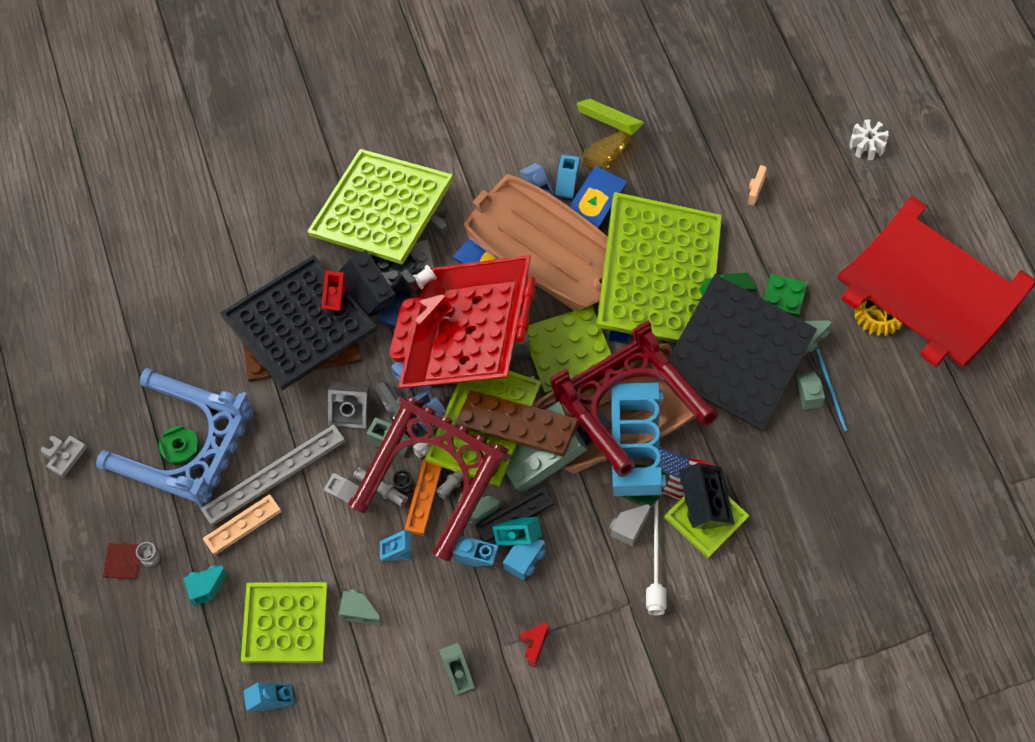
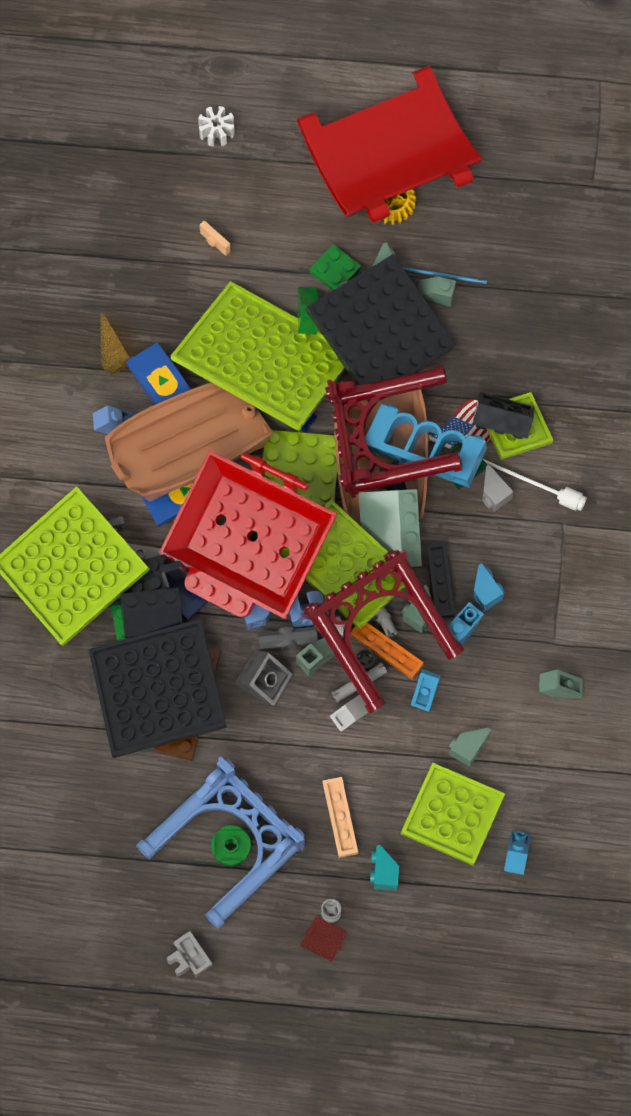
camera: 70 degrees left, 5 degrees up
(272, 475) = (302, 772): light grey plate -> none
(333, 290) = (148, 640): red slope -> none
(424, 277) = (172, 553): white bush -> none
(434, 310) = (217, 557): red slope -> none
(517, 423) = (368, 533): reddish brown plate -> none
(518, 531) = (461, 582): teal slope -> none
(536, 638) = (566, 608): red slope -> none
(567, 176) = (122, 391): dark azure slope -> none
(609, 116) = (77, 326): lime slope -> none

